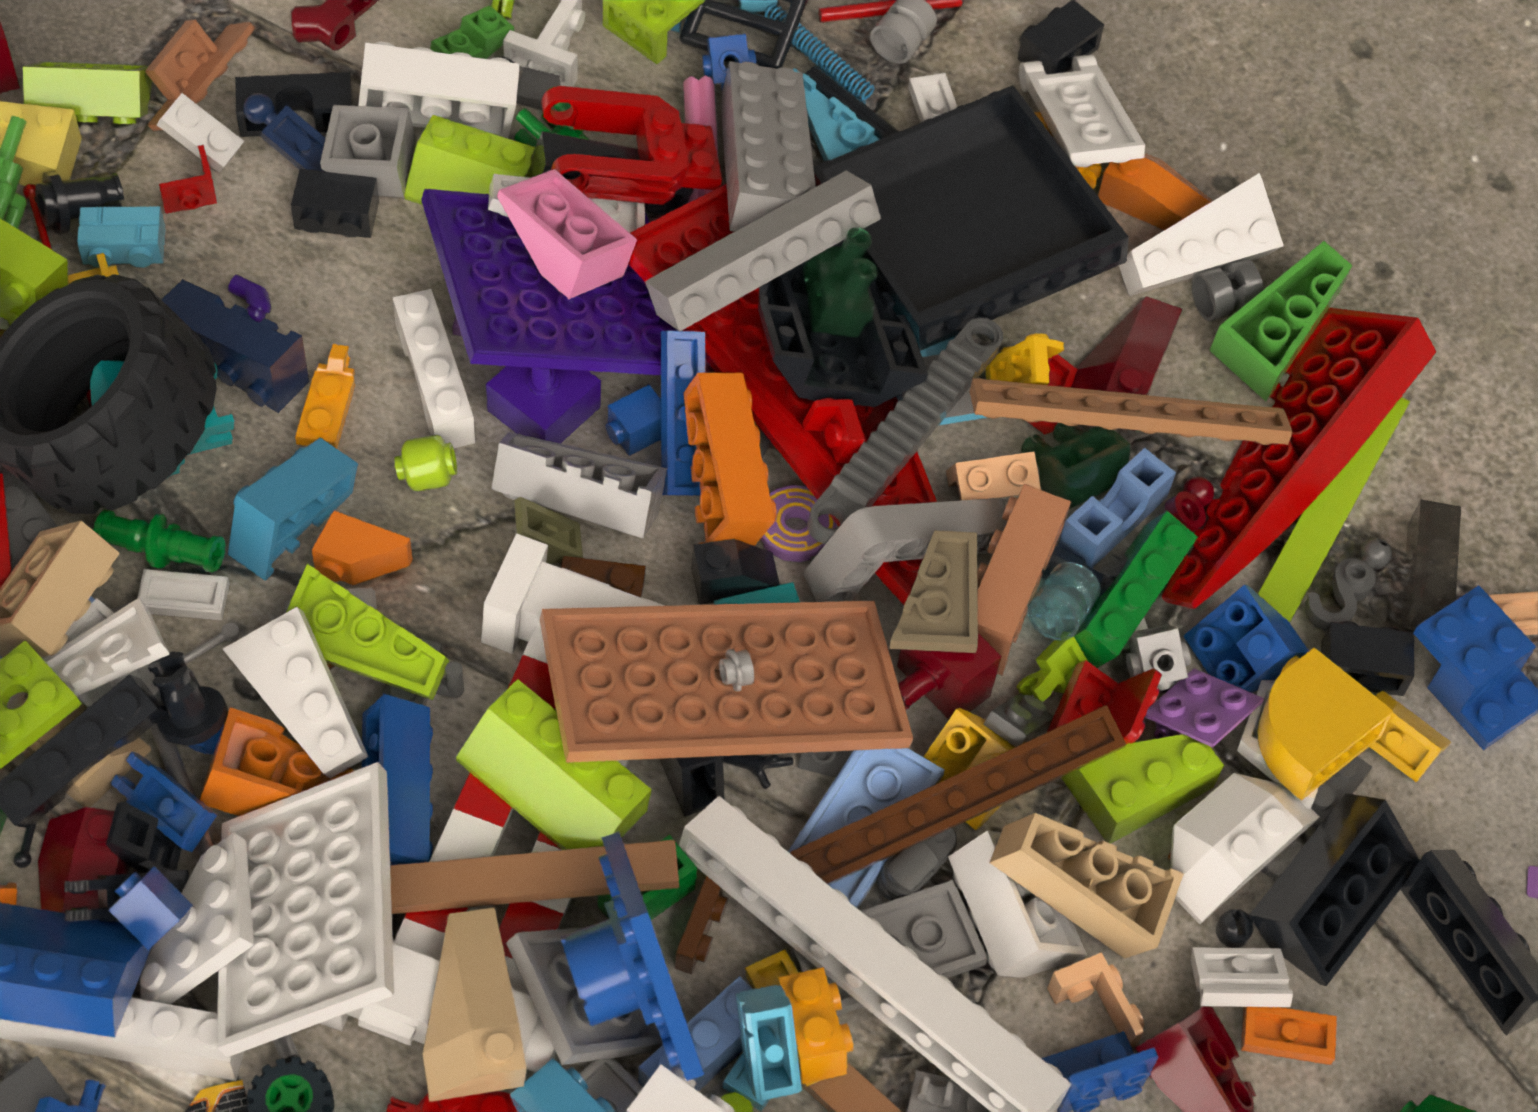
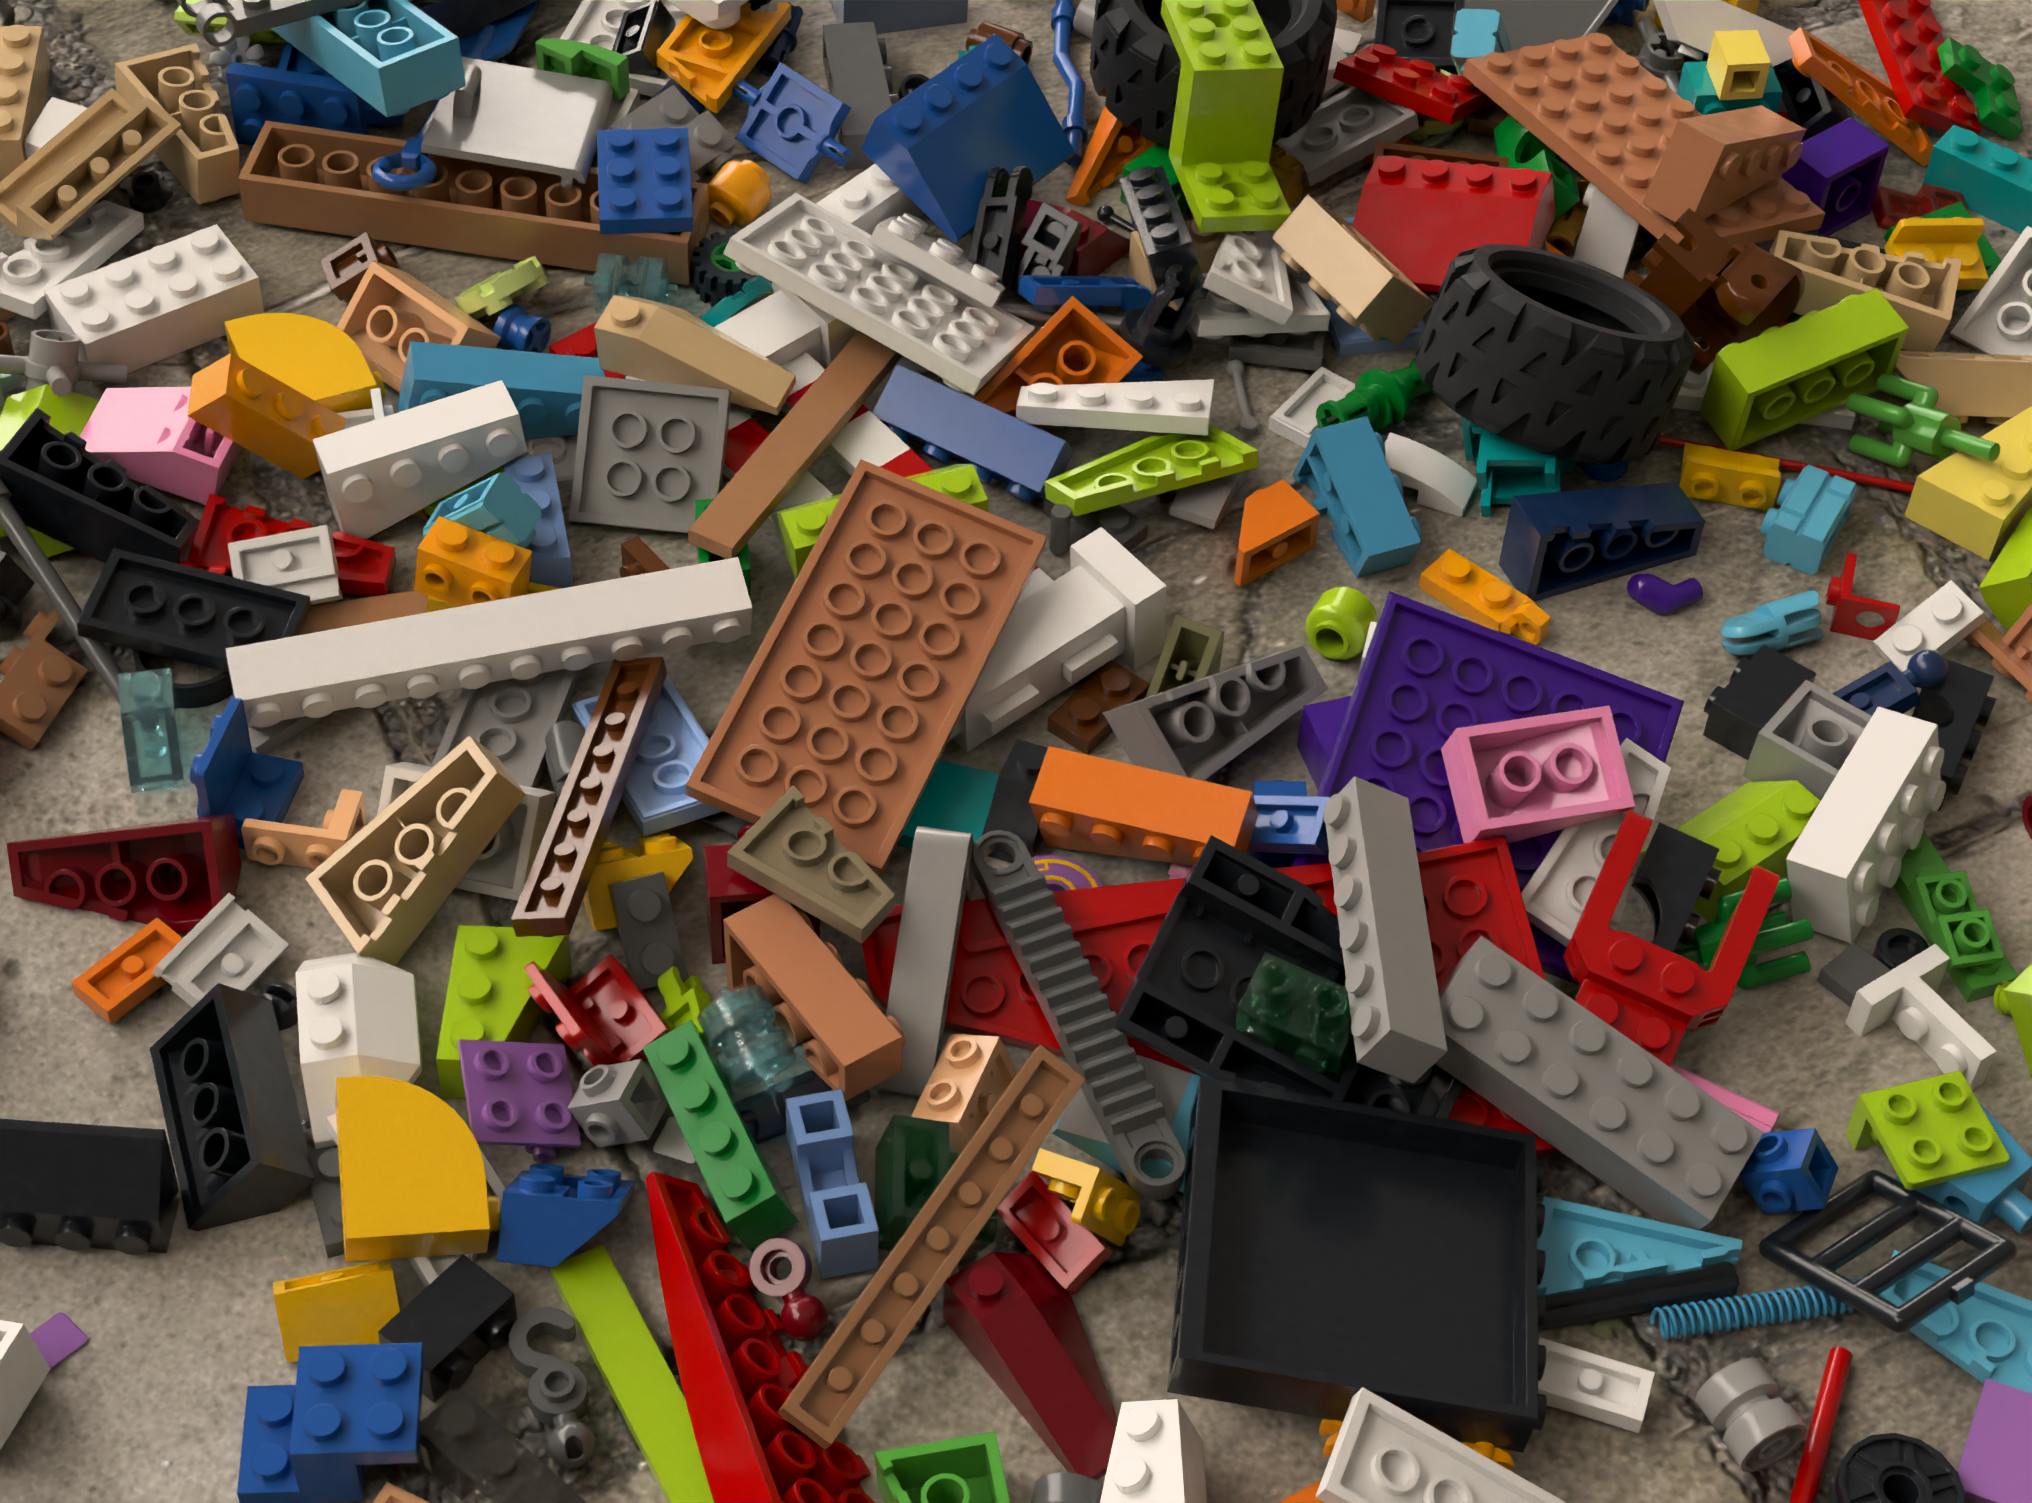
camera: 125 degrees right, 10 degrees down
(61, 200) = (1883, 481): black piece -> none
(149, 906) = (964, 208): blue brick -> none
(220, 482) = (1437, 478): none -> white slope
(250, 220) = (1775, 624): none -> medium azure arm
(376, 1028) = (755, 291): none -> teal tile
(622, 965) = (618, 435): blue piece -> none
(736, 669) = (861, 649): light grey plate -> none
(840, 424) = (1111, 935): red bracket -> none

